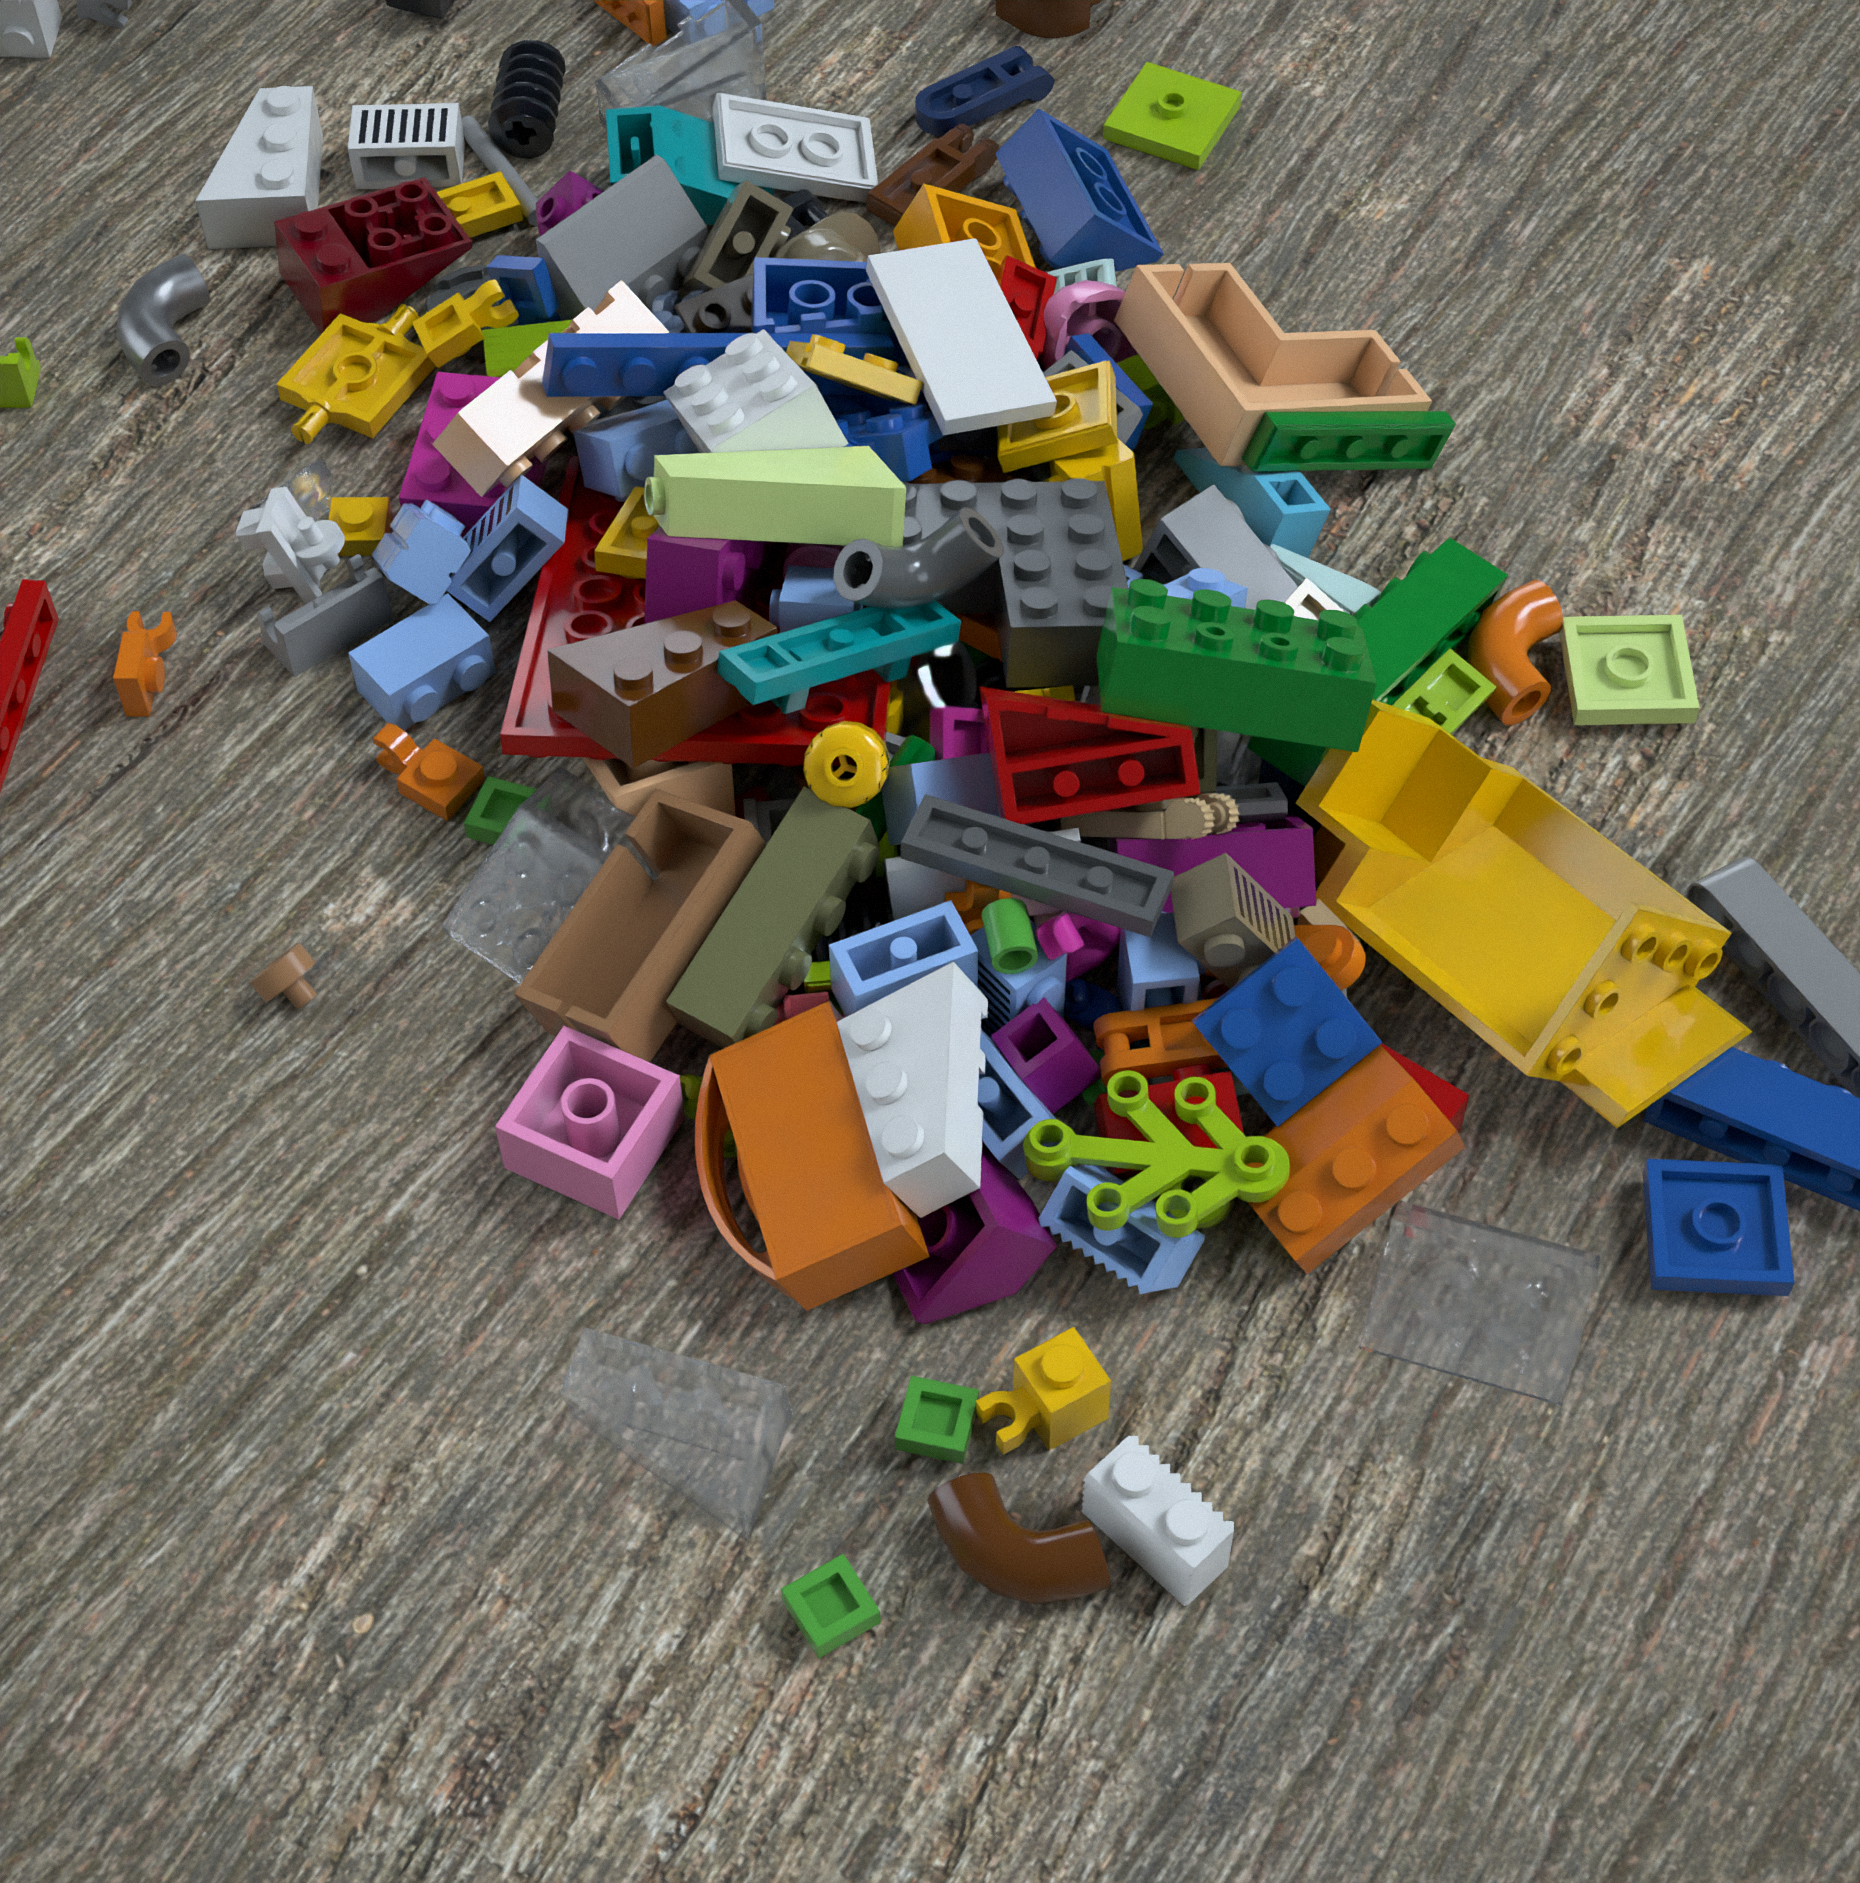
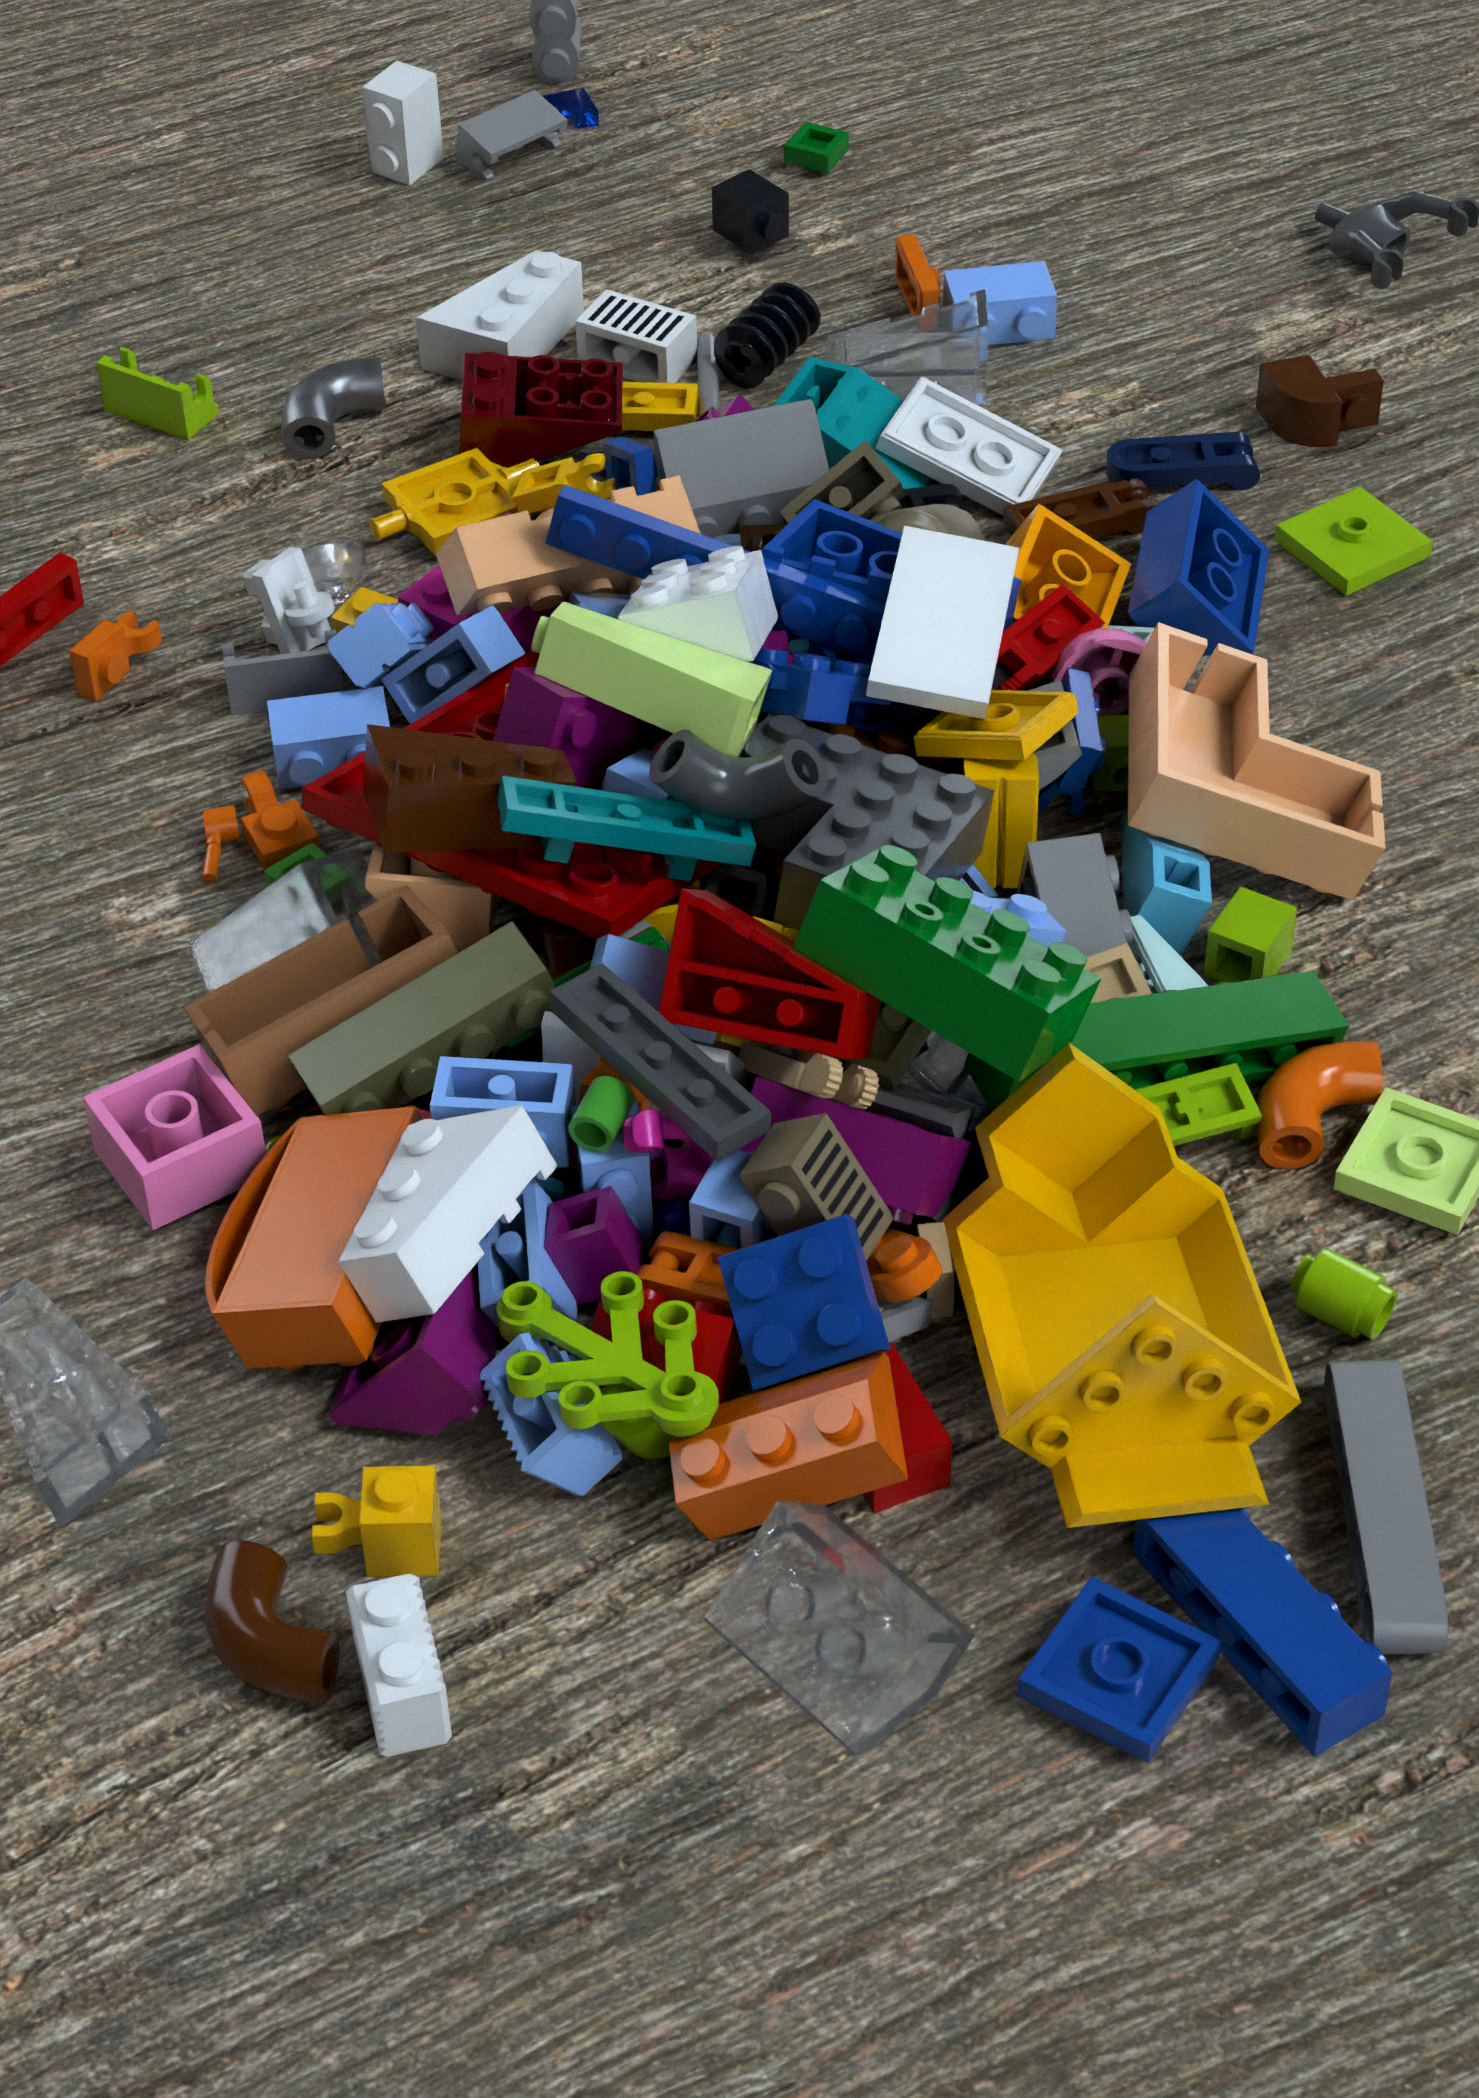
camera: 30 degrees right, 10 degrees down
(286, 977) = (34, 929): medium nougat tile -> none
(379, 795) = (219, 827): none -> orange hand
(830, 1605) = (76, 1602): bright green plate -> none
(867, 751) = (559, 916): yellow head -> none
(871, 375) = (807, 597): yellow plate -> none
(936, 1419) = (279, 1499): bright green plate -> none
(1348, 440) = (1277, 853): green tile -> none
(1362, 528) = (1249, 938): none -> lime brick
(1655, 816) = (1343, 1294): none -> lime brick

